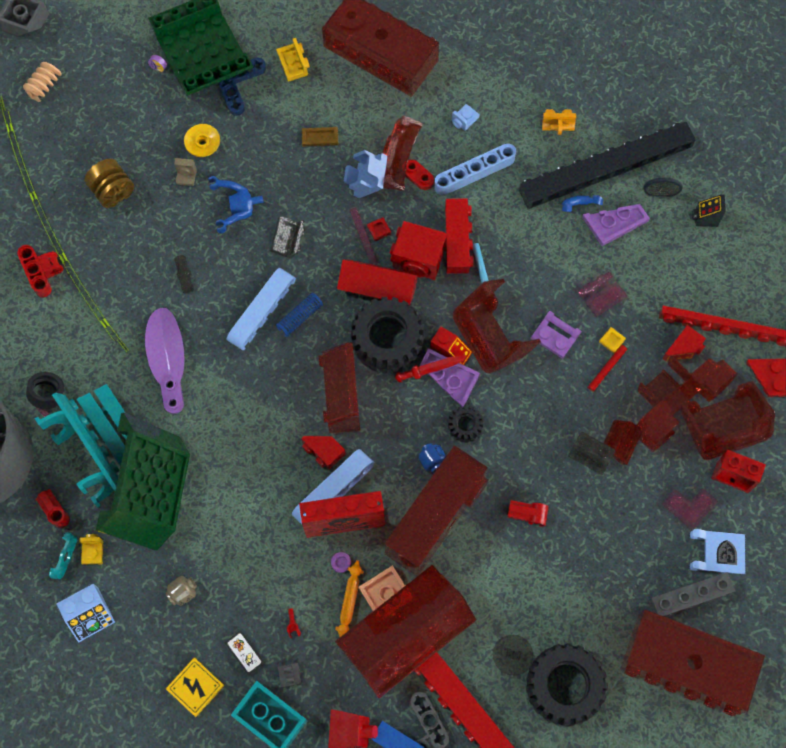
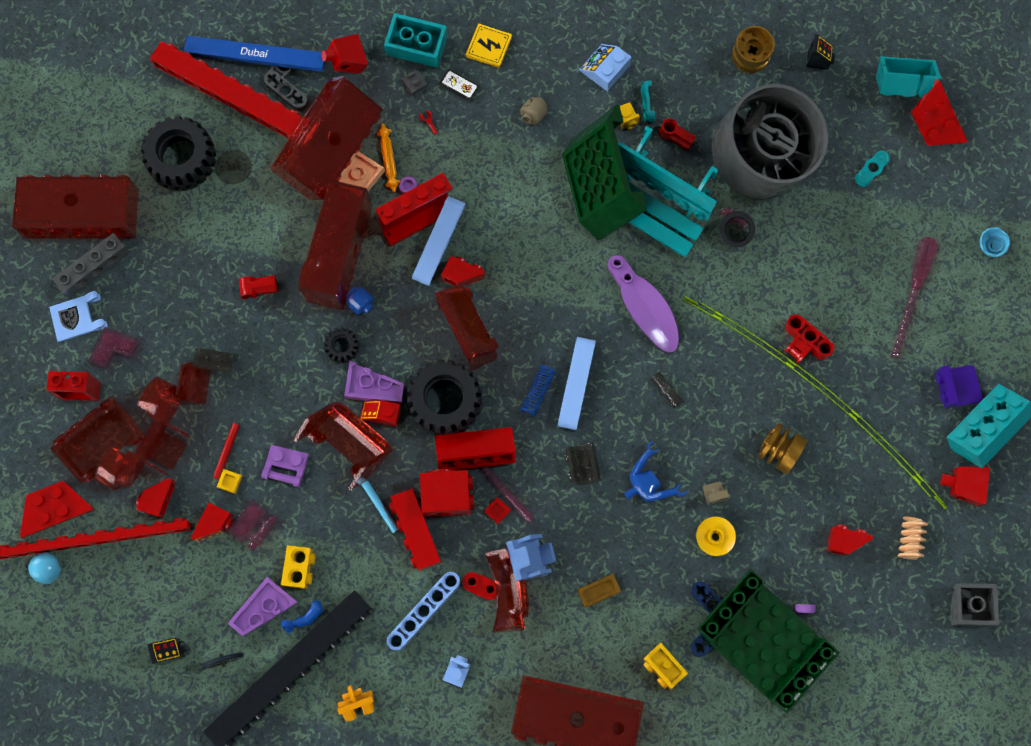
camera: 160 degrees right, 5 degrees up
(96, 98) = (845, 541): none -> red slope
(417, 372) = (404, 376): red sword -> none
(575, 243) = (291, 567): none -> yellow brick
(638, 306) = (212, 523): none -> red slope

